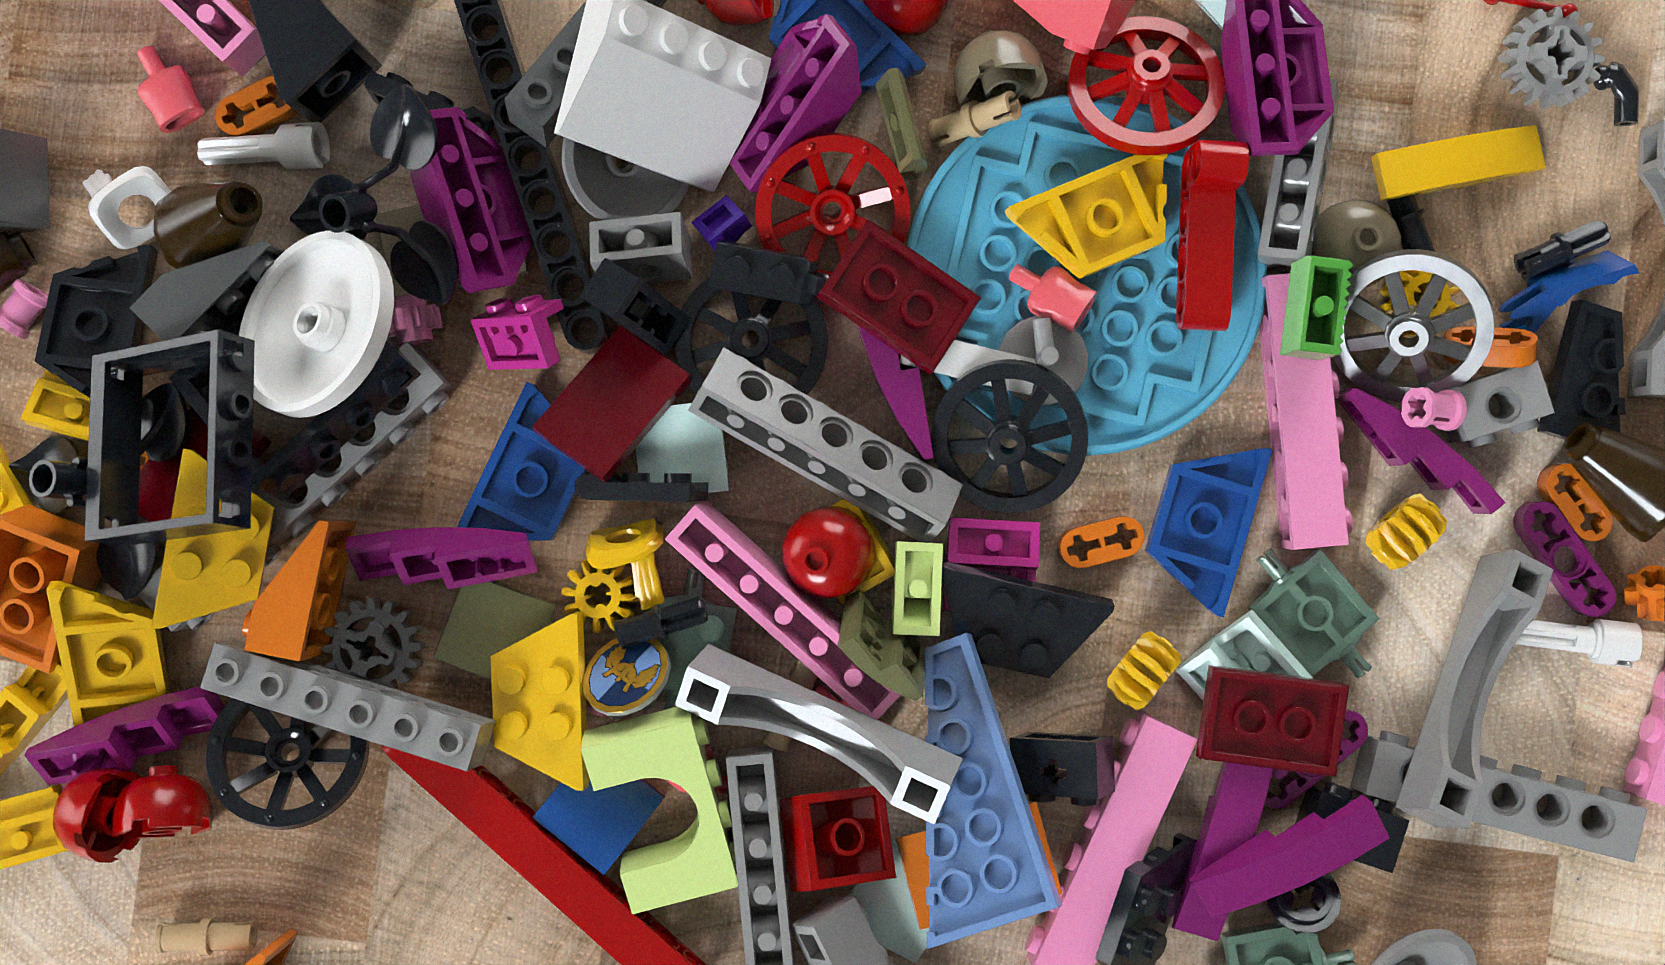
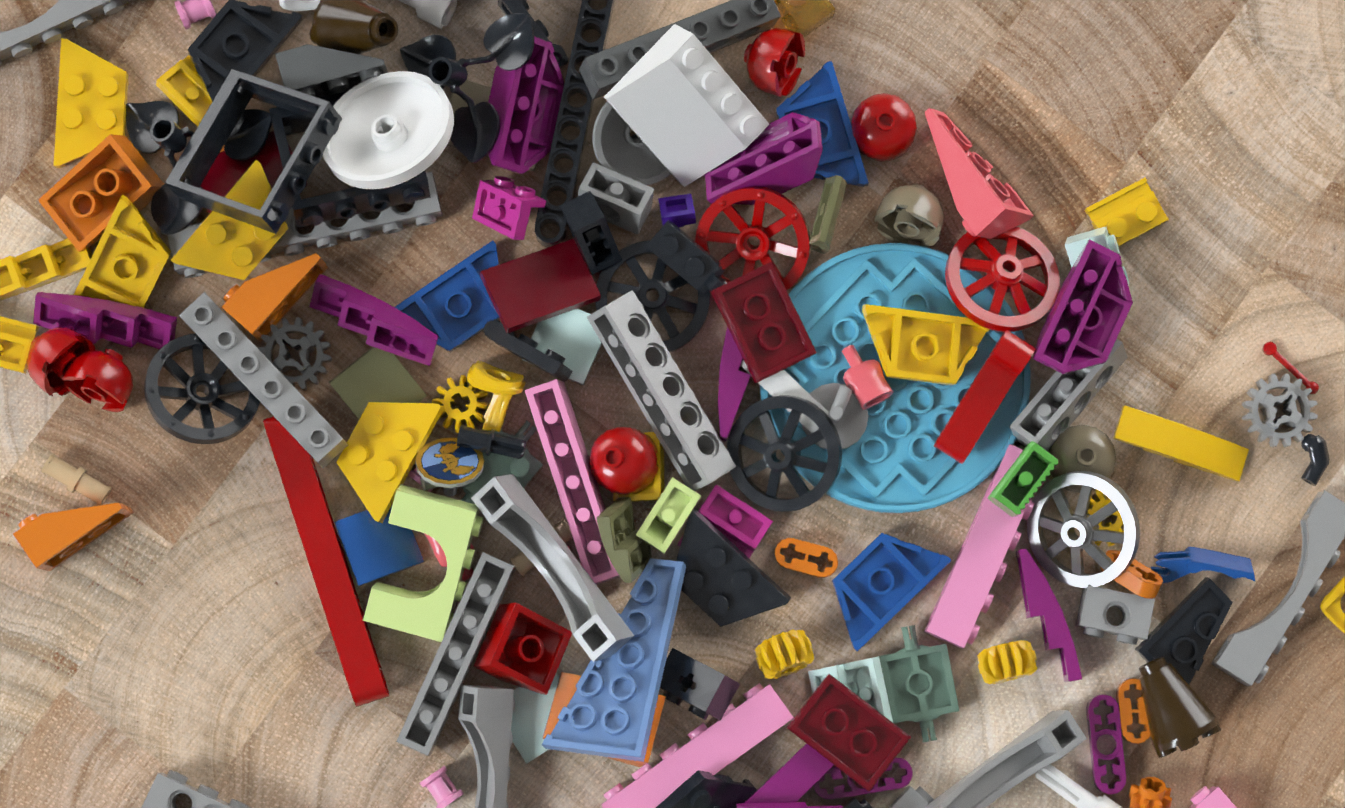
camera: 30 degrees right, 5 degrees down
(414, 320) = (447, 162): bright pink gear -> none
(975, 119) = (878, 236): tan pin -> none
(1410, 223) = (1127, 467): black axle -> none
(1442, 409) = (1067, 590): bright pink bush -> none
(1561, 249) = (1218, 539): black axle -> none

